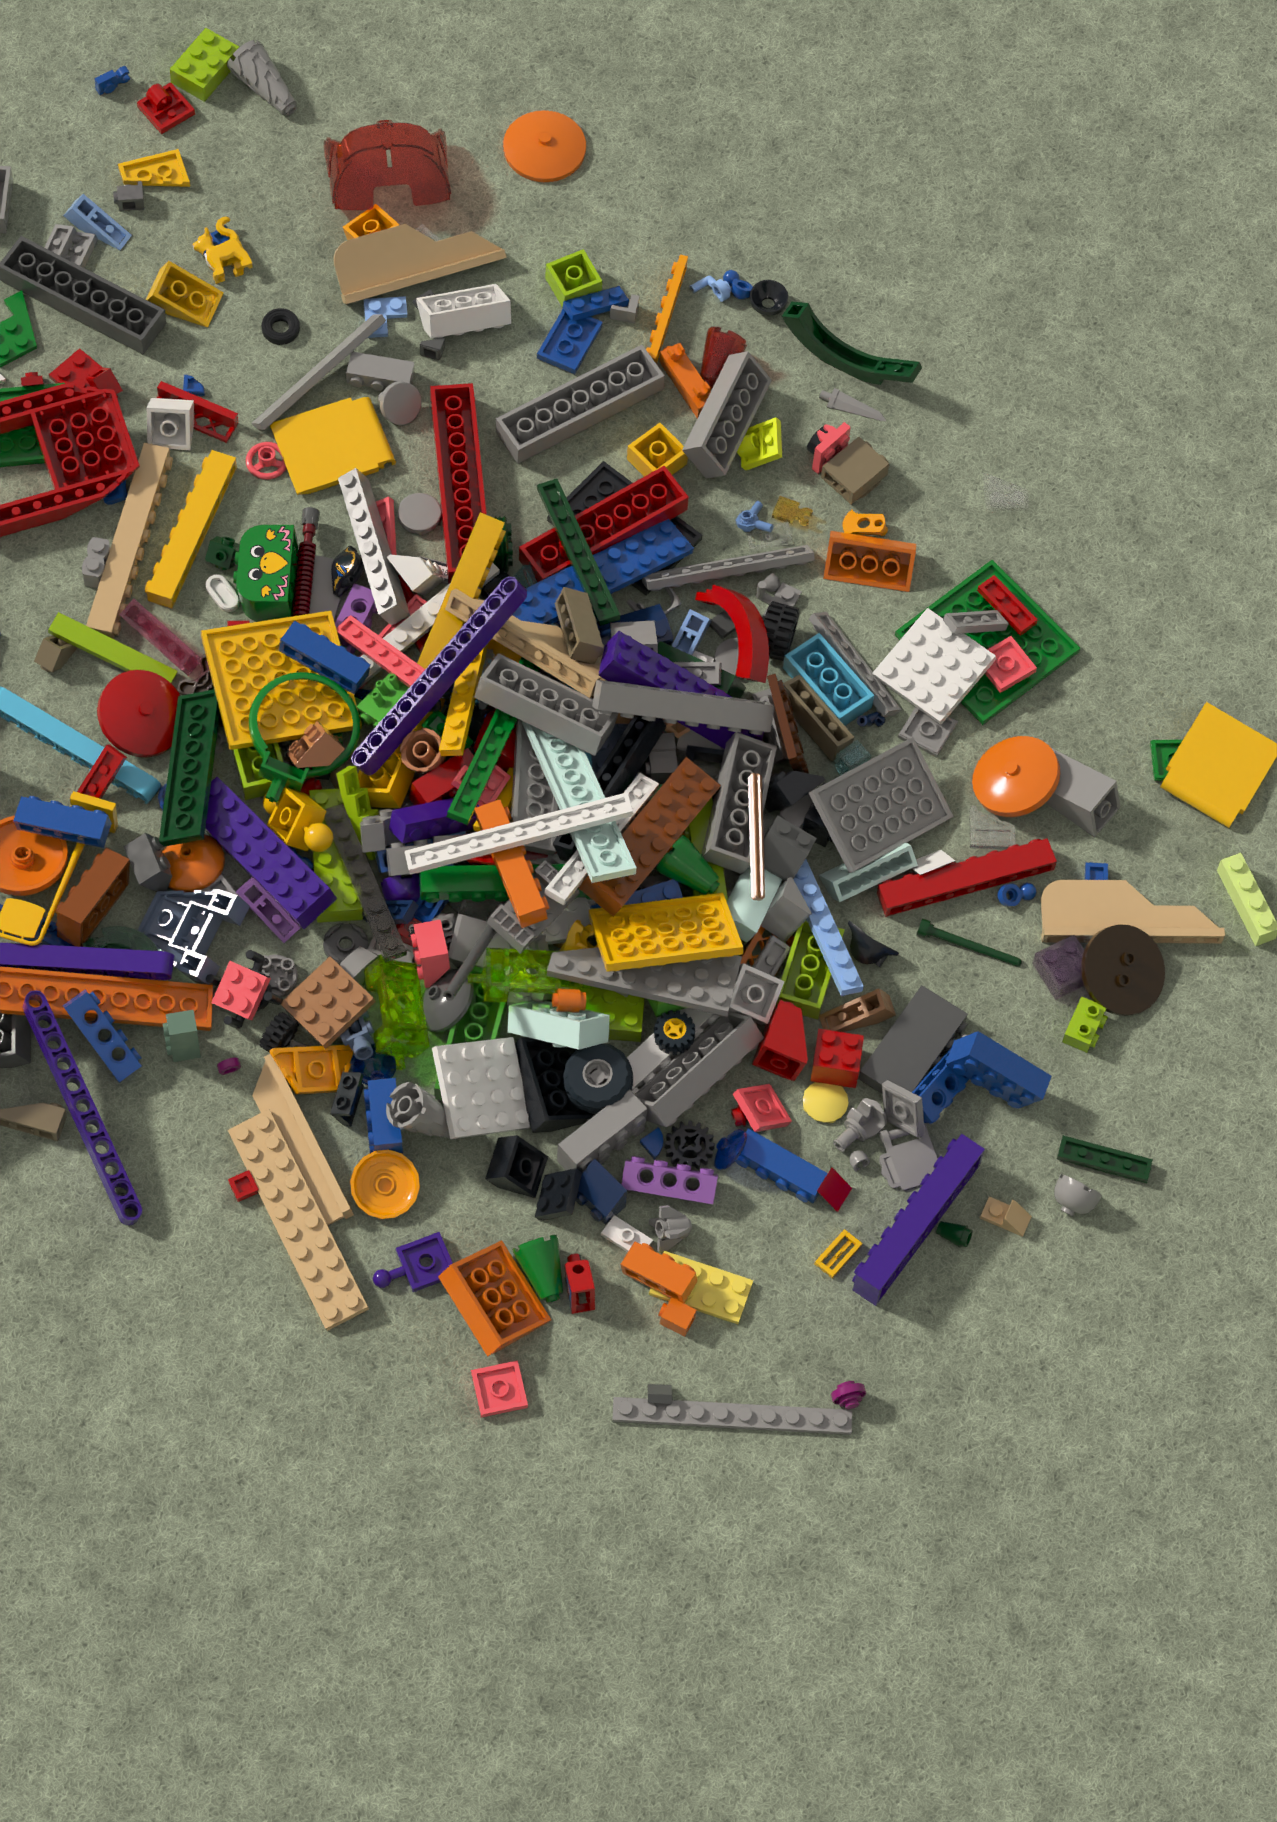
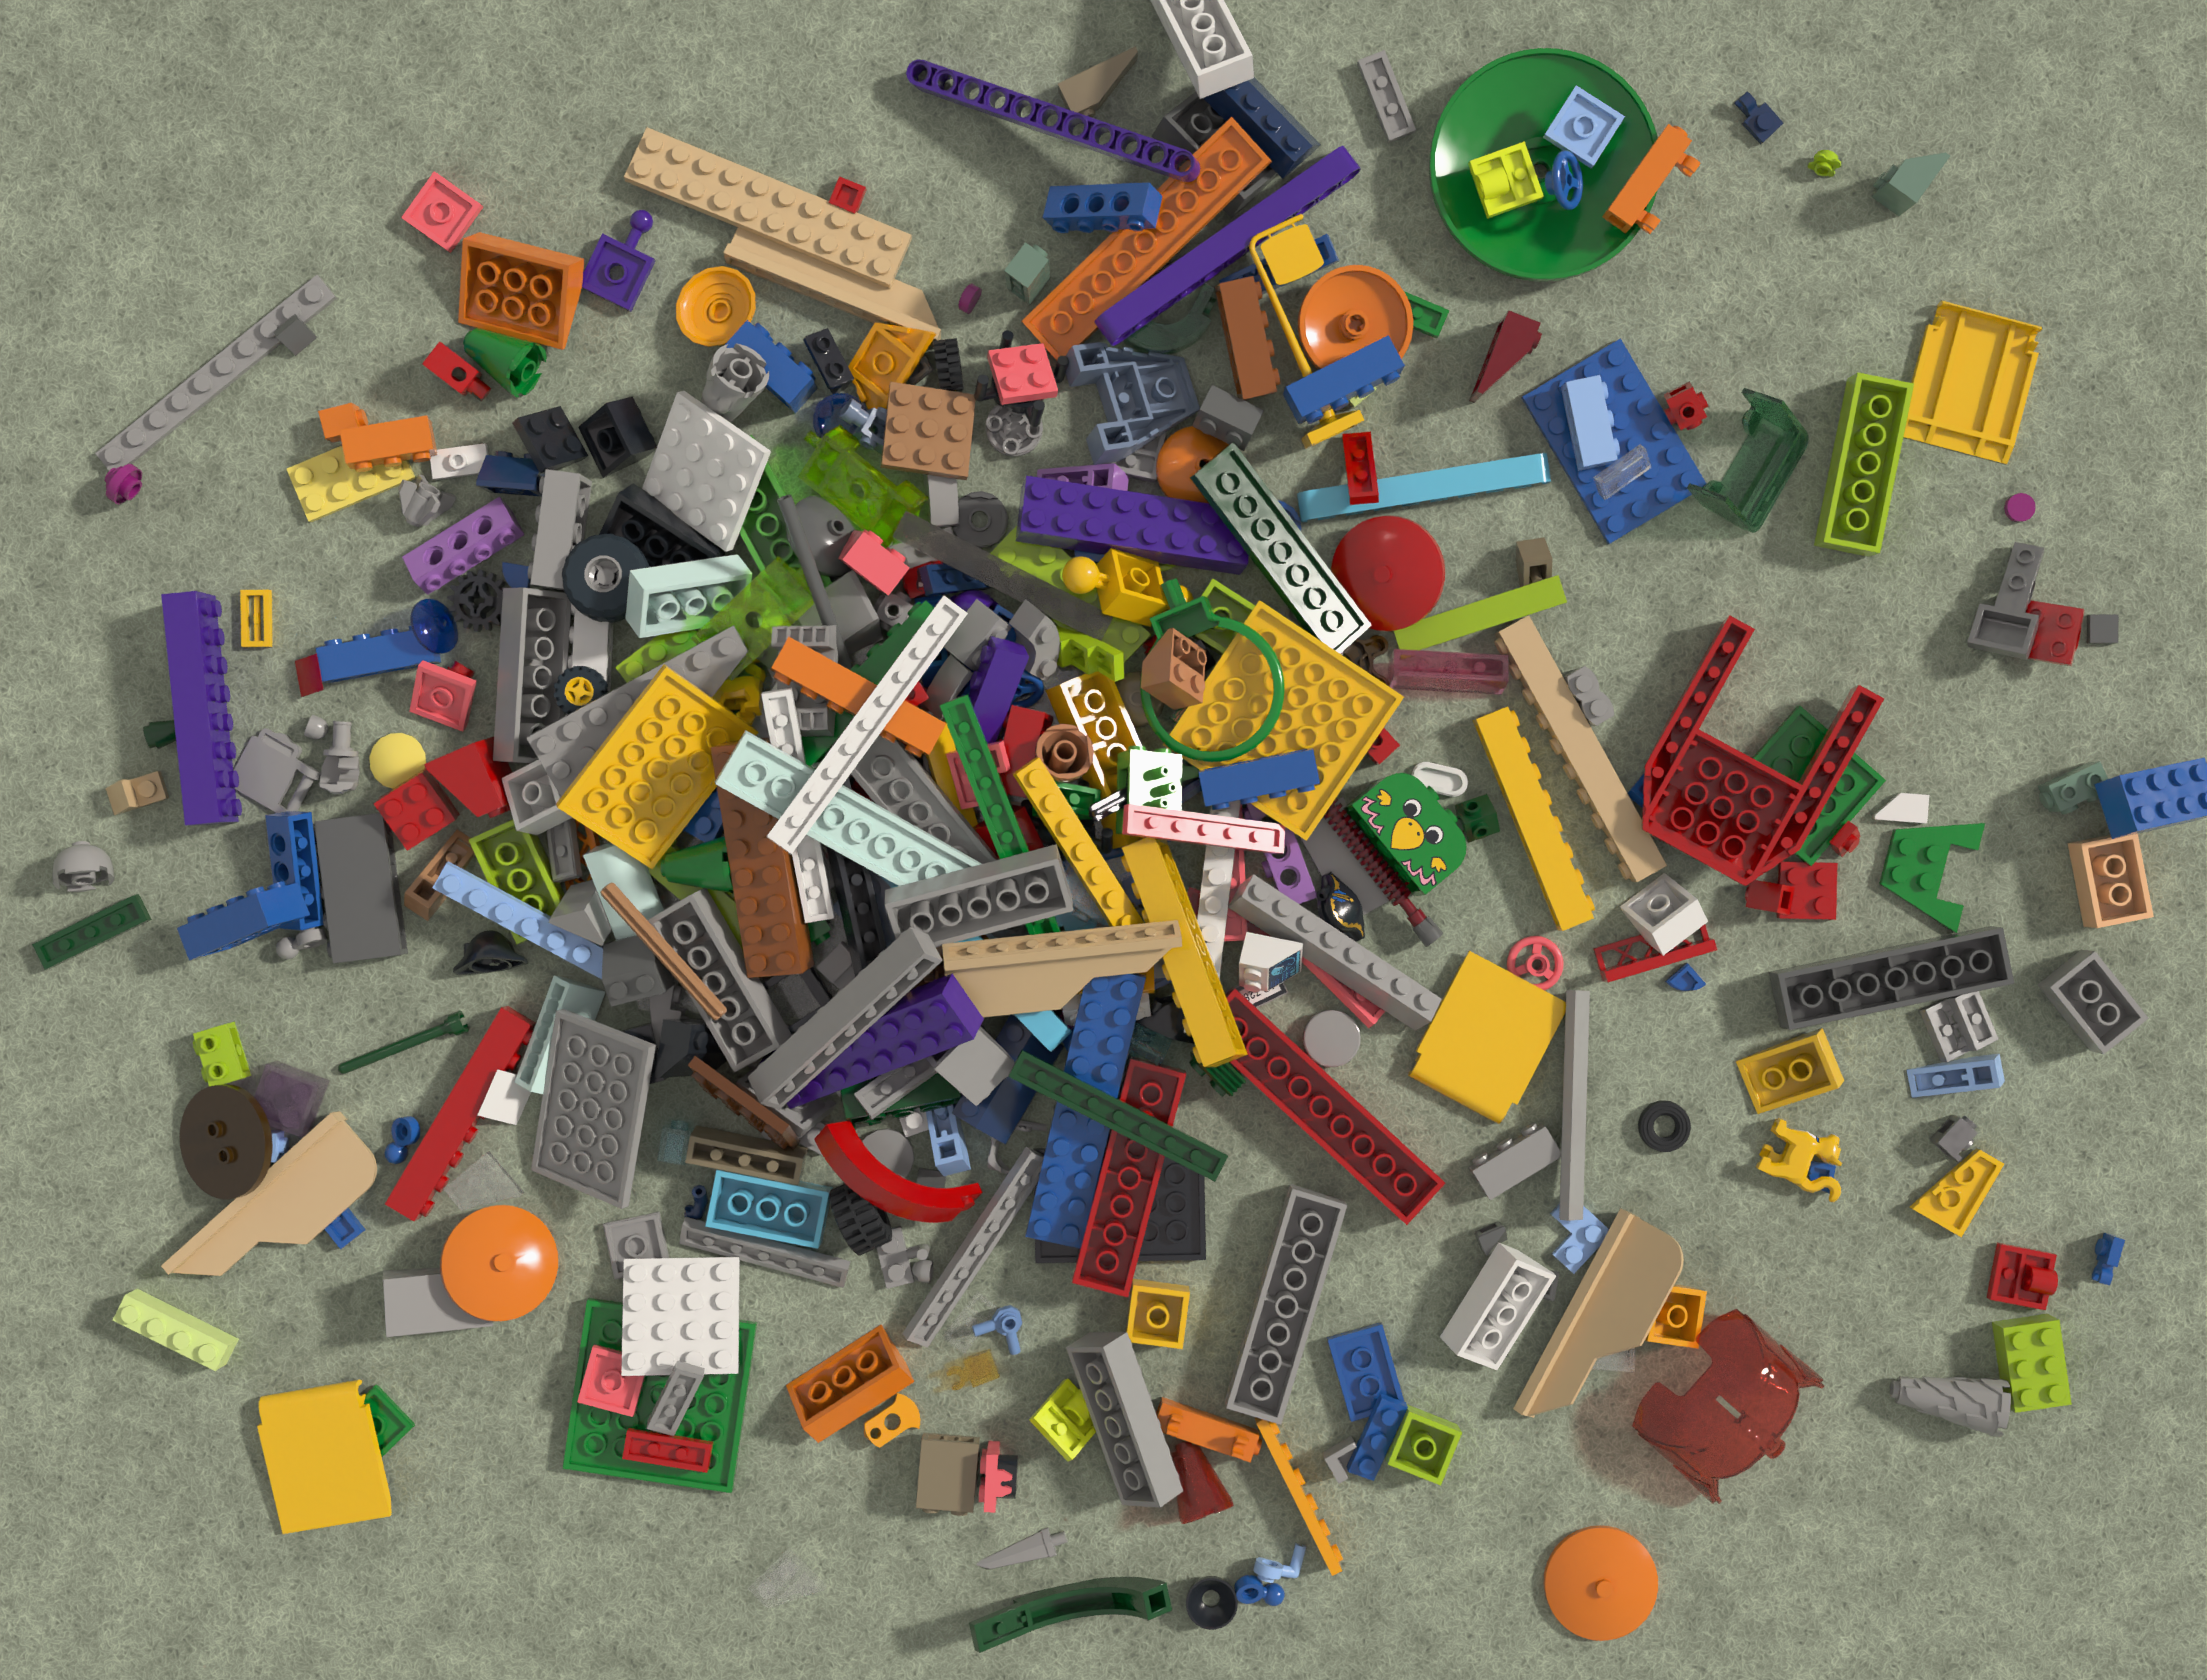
camera: 140 degrees right, 25 degrees up
(400, 403) = (1461, 1141): light grey tile -> none
(439, 676) = (1103, 847): dark purple beam -> none
(569, 1000) = (689, 618): orange brick -> none
(579, 626) = (1030, 1021): dark tan brick -> none
(903, 1108) = (304, 805): light grey tile -> none

